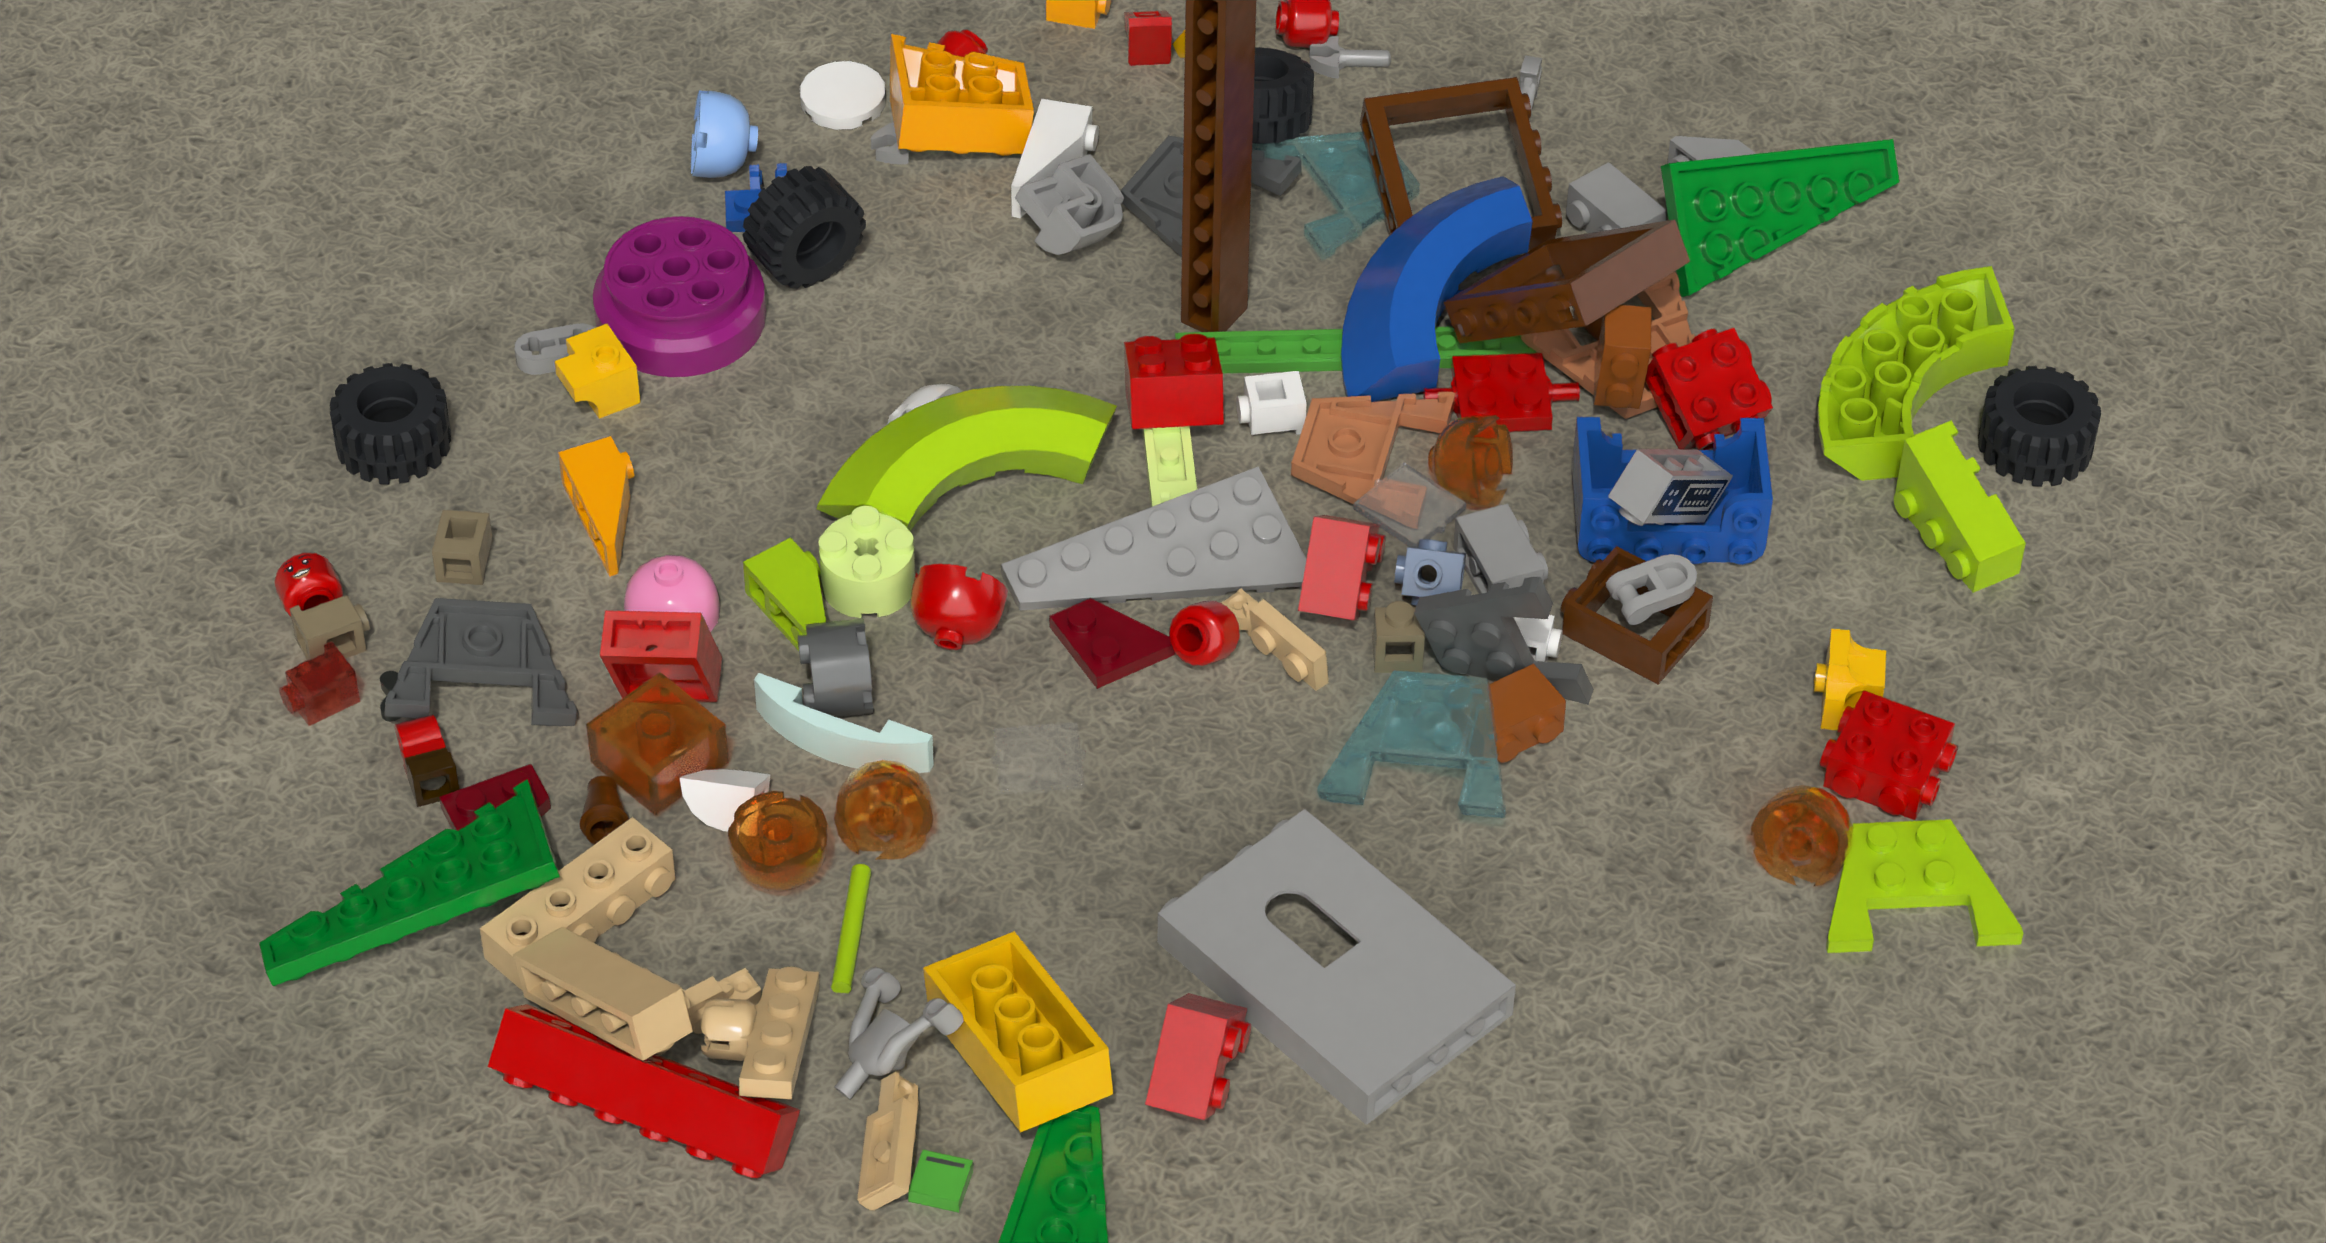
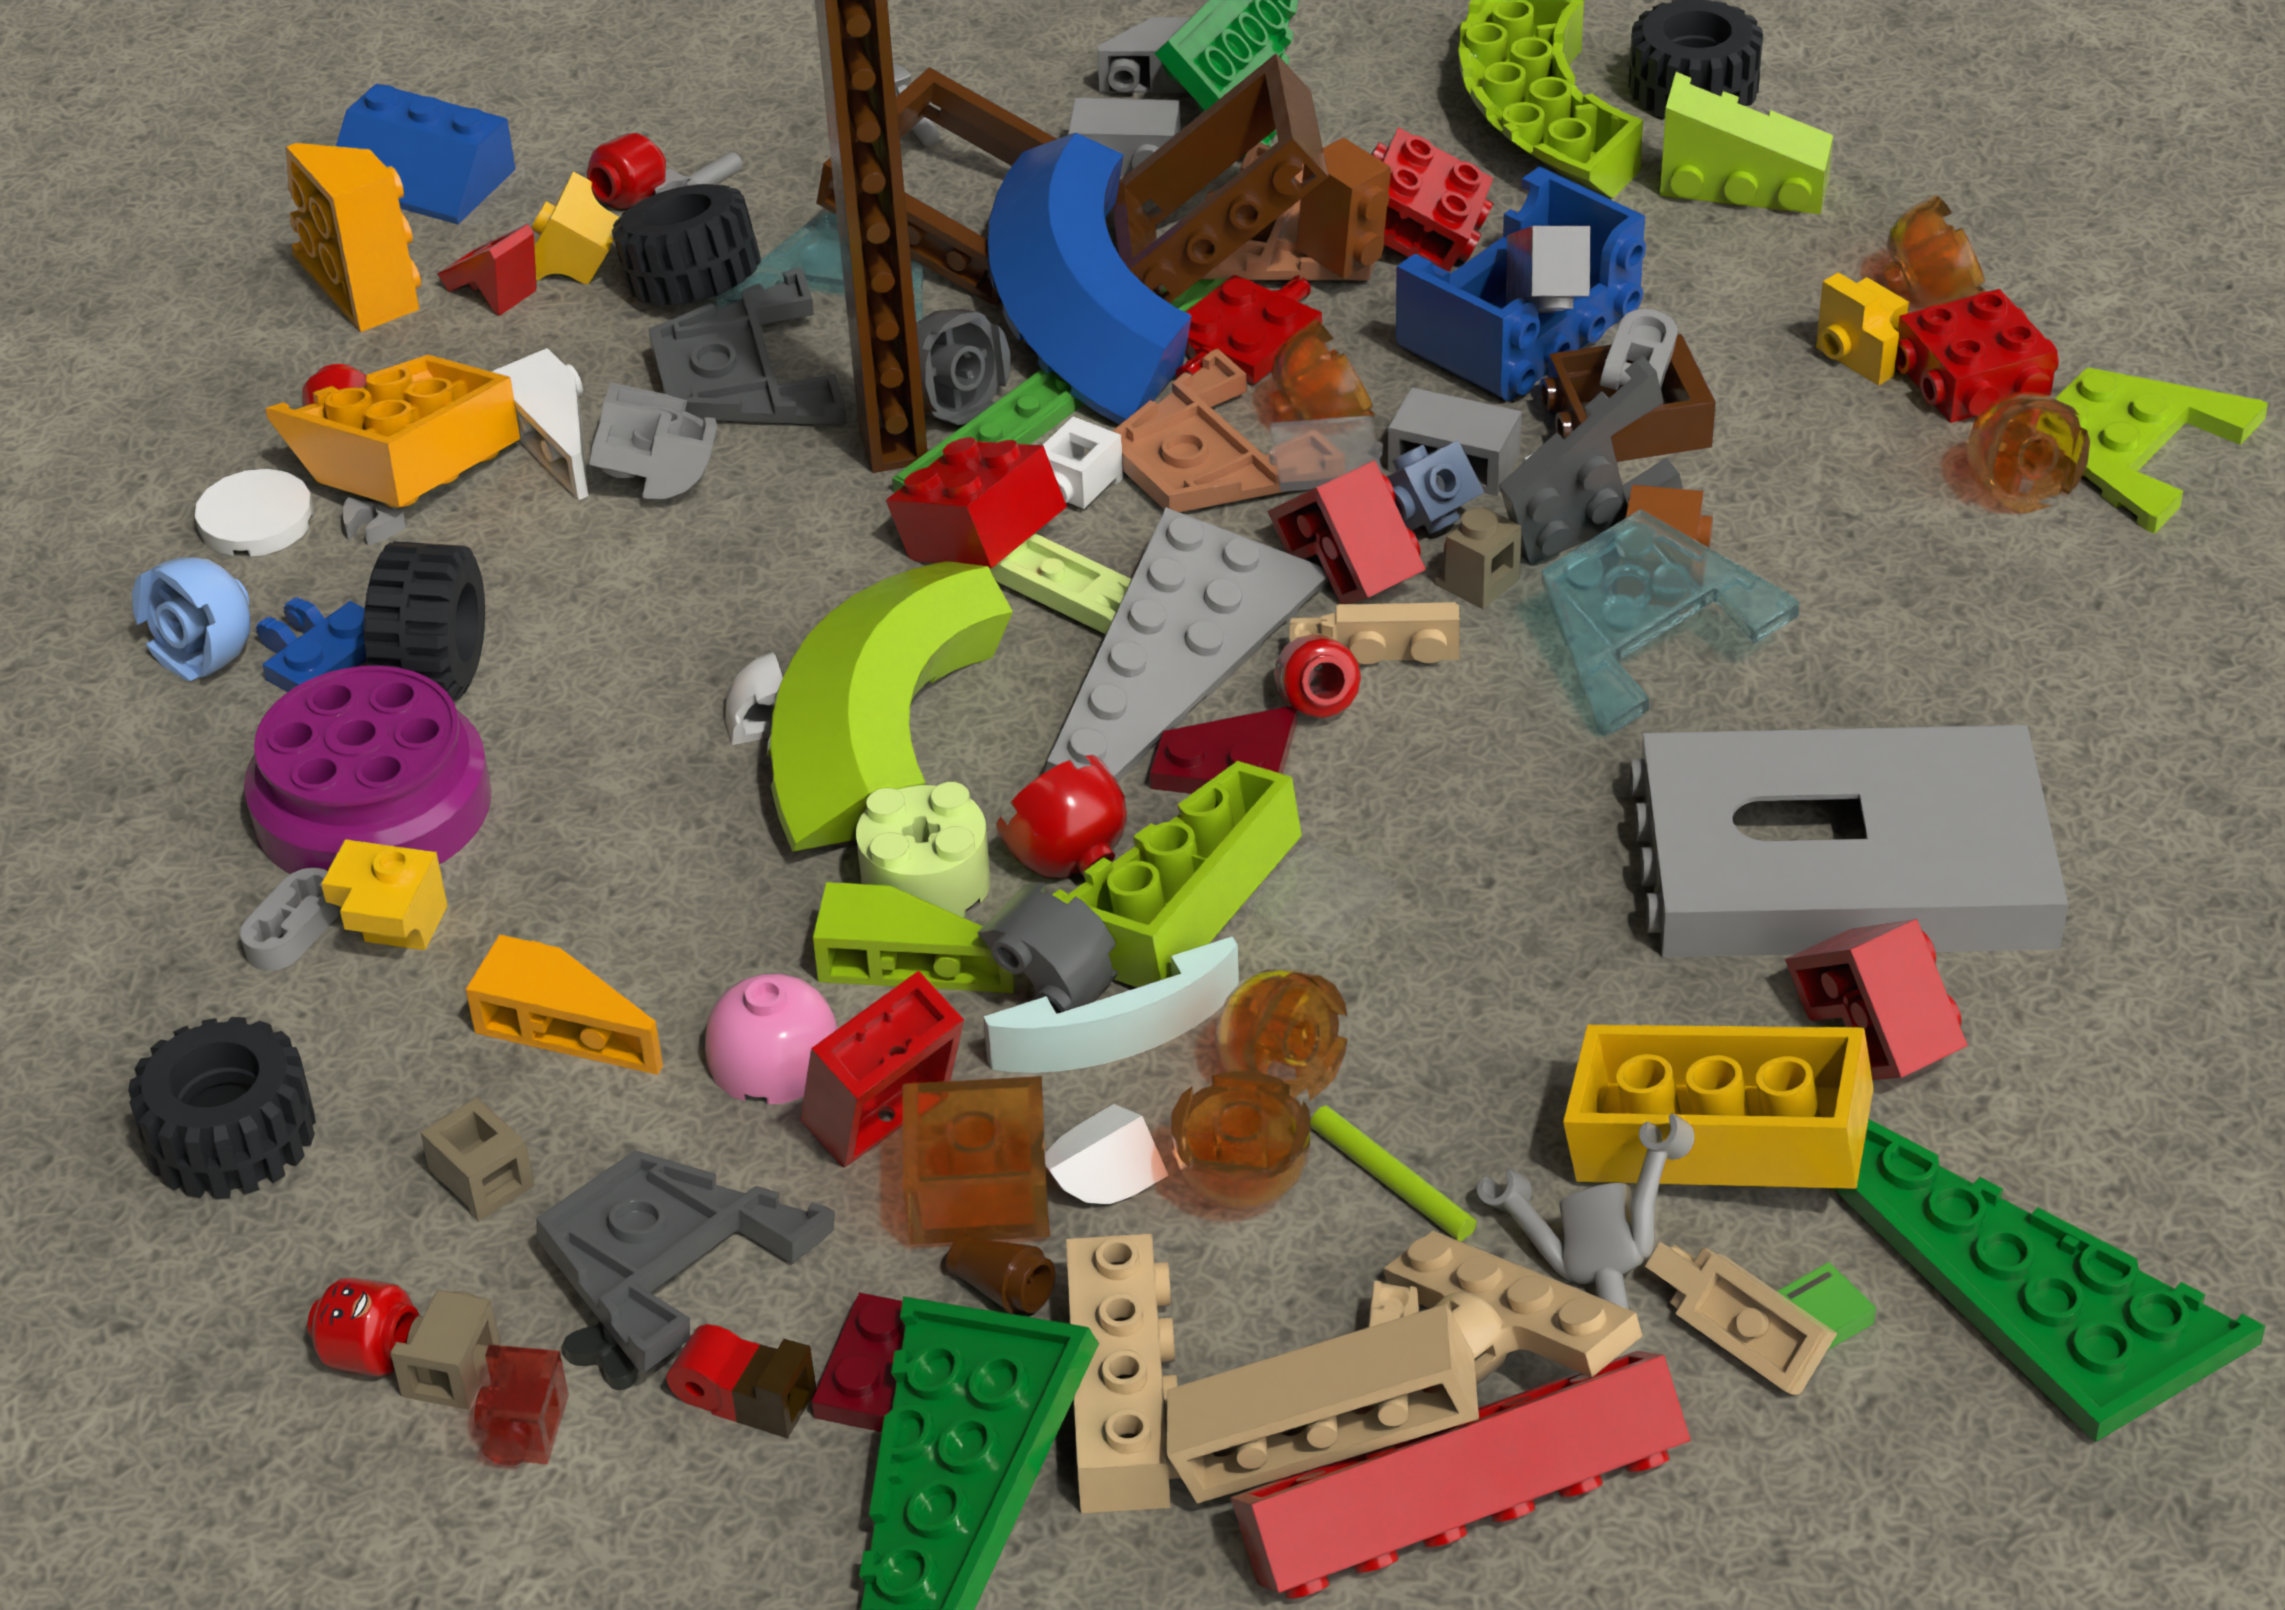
camera: 45 degrees left, 5 degrees down
(969, 683) = (1191, 871): none -> lime wedge
(1285, 287) = (960, 363): none -> dark grey cylinder
(1959, 664) = (1930, 257): none -> clear orange cylinder

